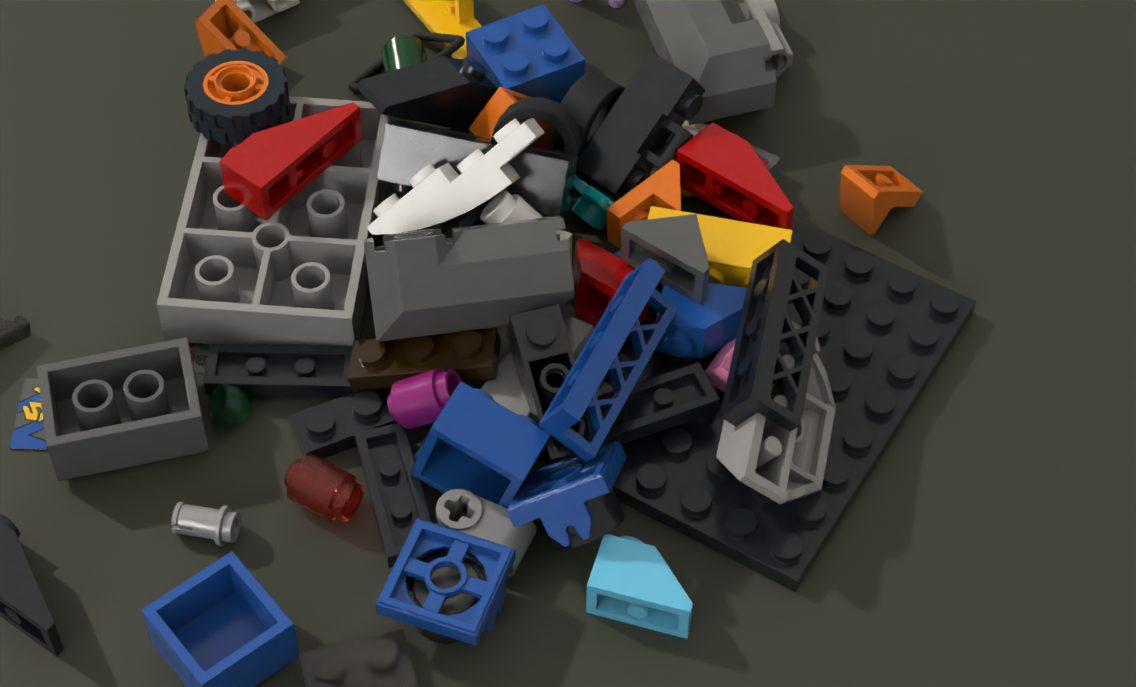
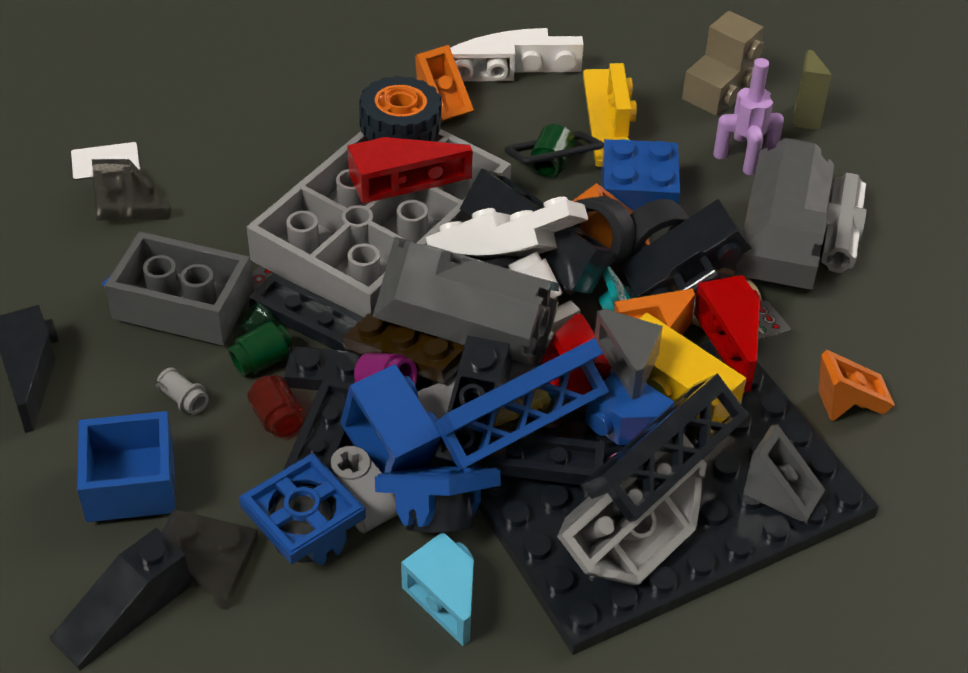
camera: 30 degrees right, 5 degrees down
(258, 435) = (260, 349): none -> dark green brick
(432, 92) = (543, 166): black slope -> none
(884, 316) = (782, 477): none -> dark grey slope

